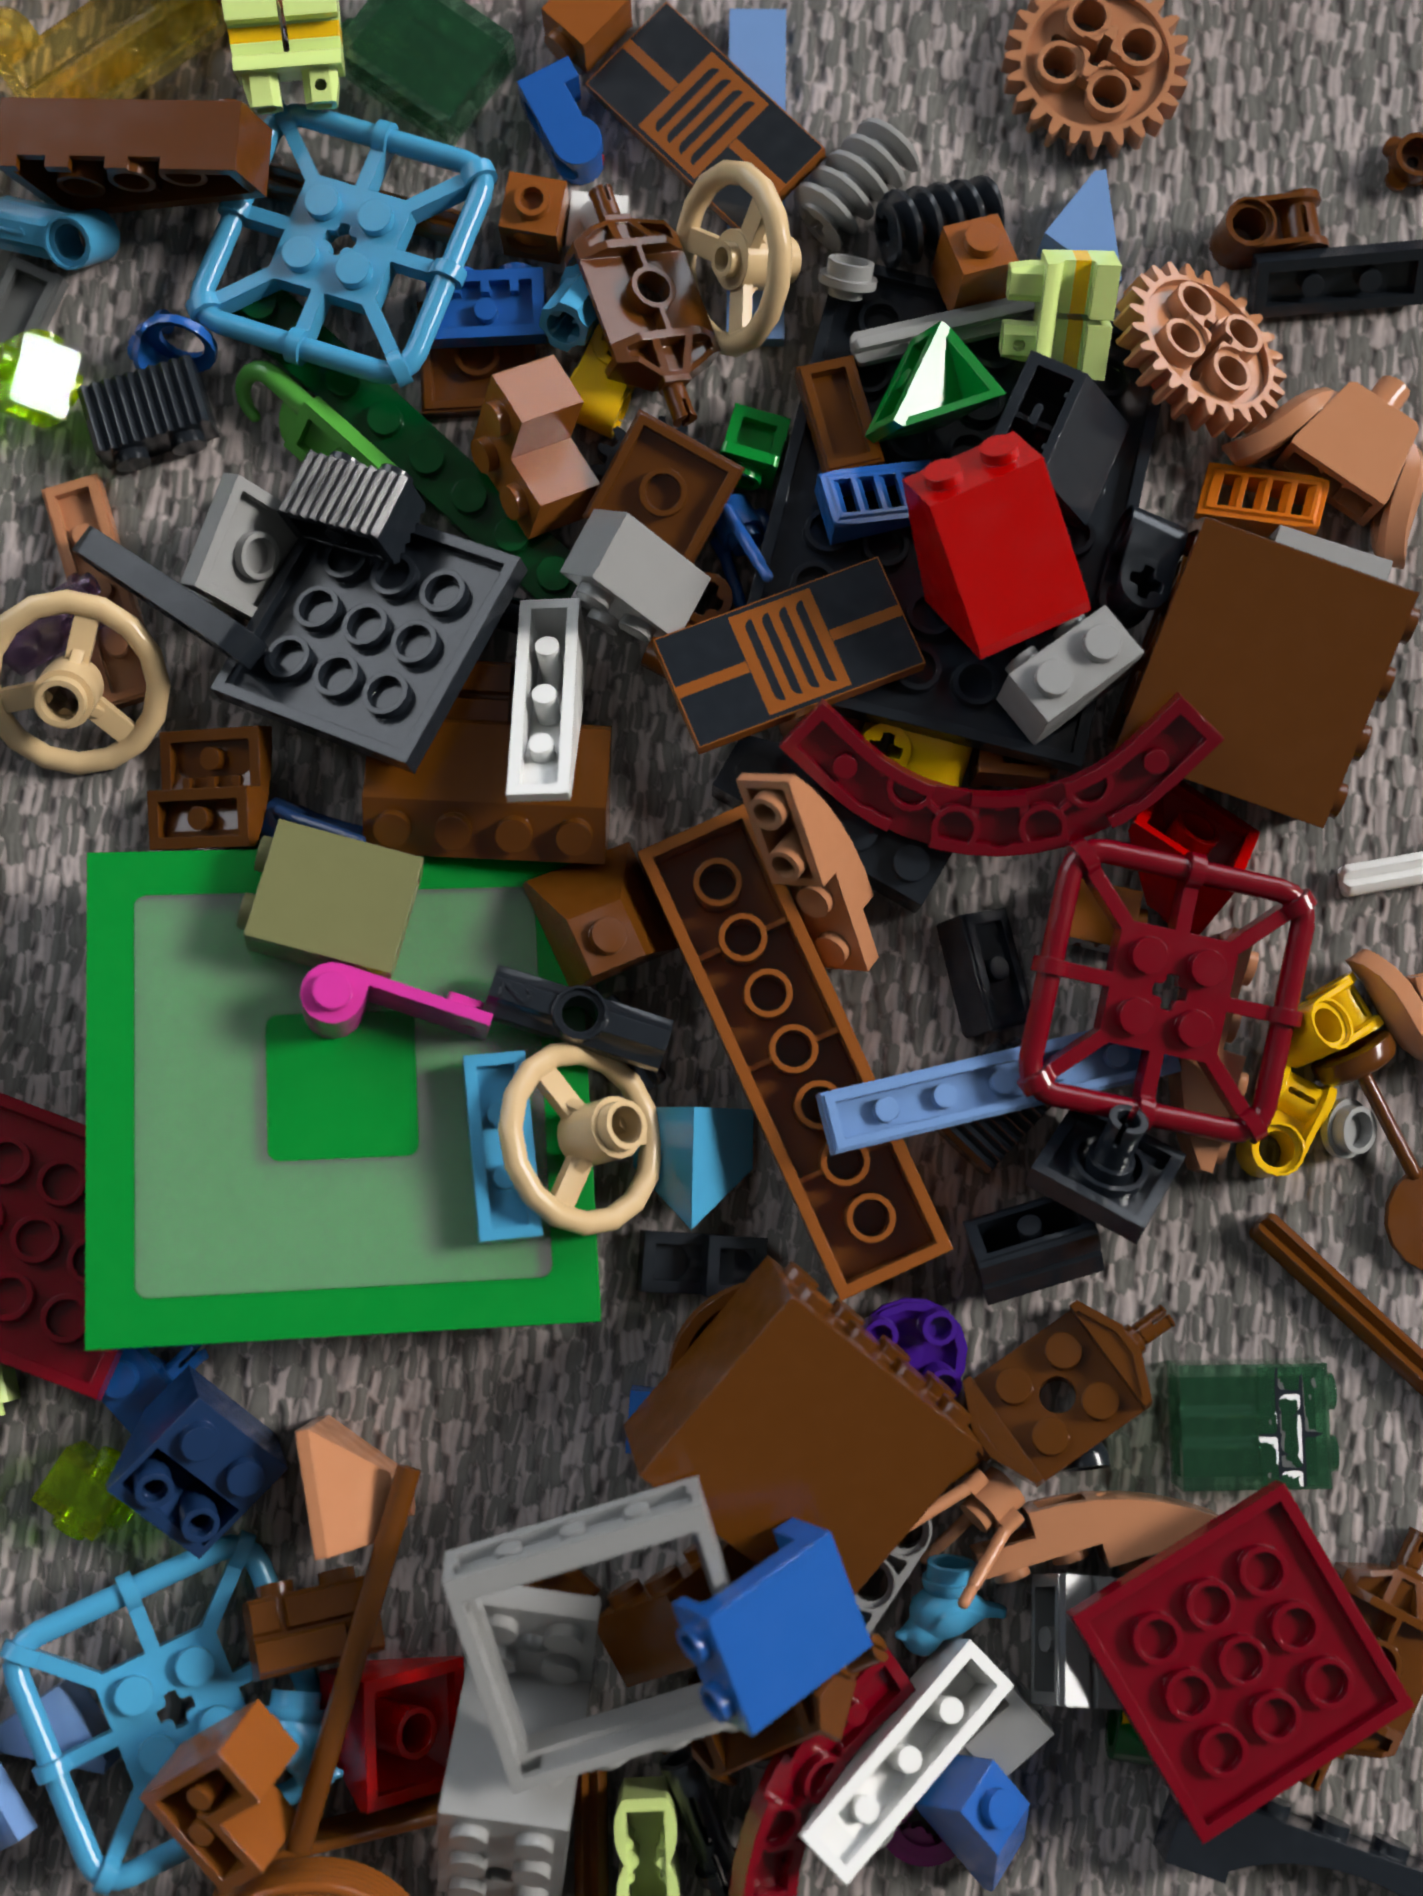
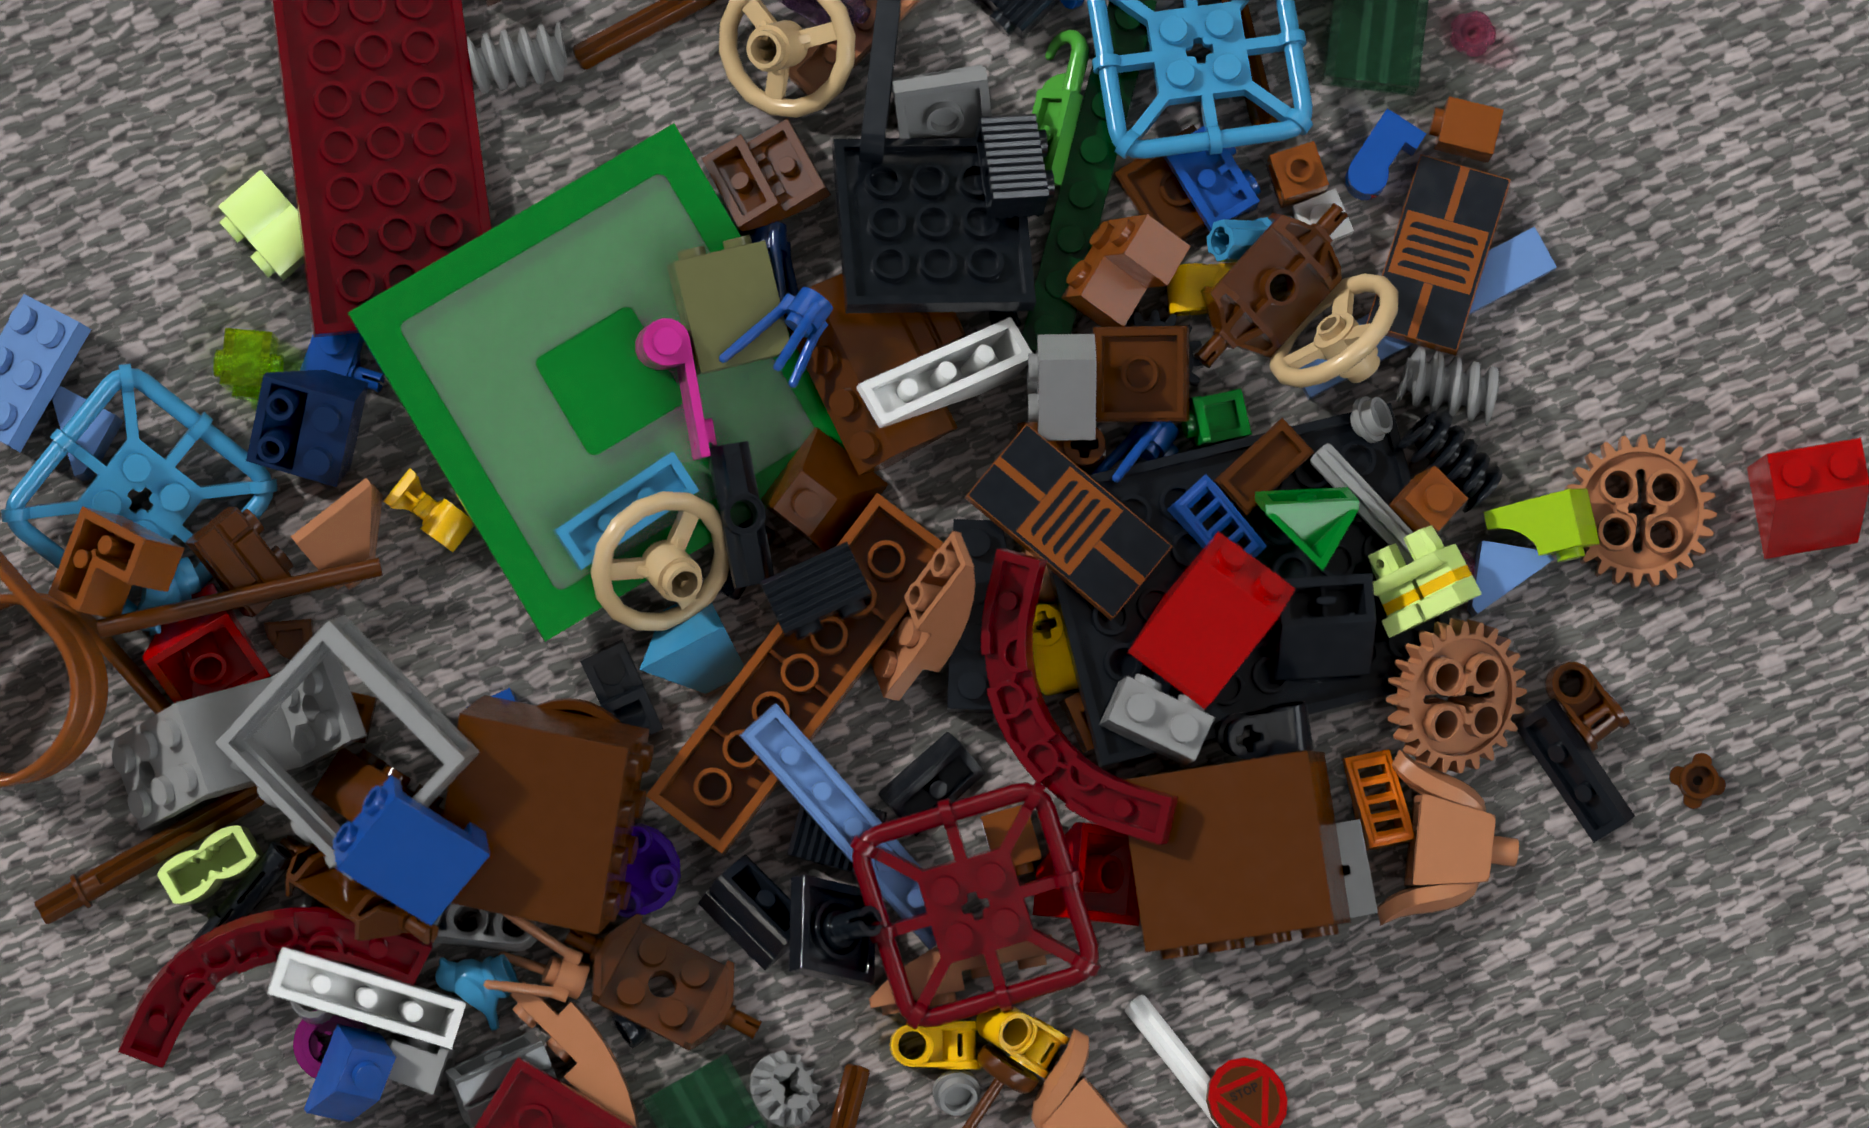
camera: 65 degrees right, 0 degrees up
(392, 1364) = (440, 519): none -> yellow leg
(394, 821) = (805, 317): none -> blue plant
(429, 1611) = (289, 635): none -> reddish brown tile
(714, 976) = (816, 591): none -> black brick
(1068, 143) = (1554, 522): none -> lime arch
(1246, 1340) = (769, 1094): none -> light grey gear

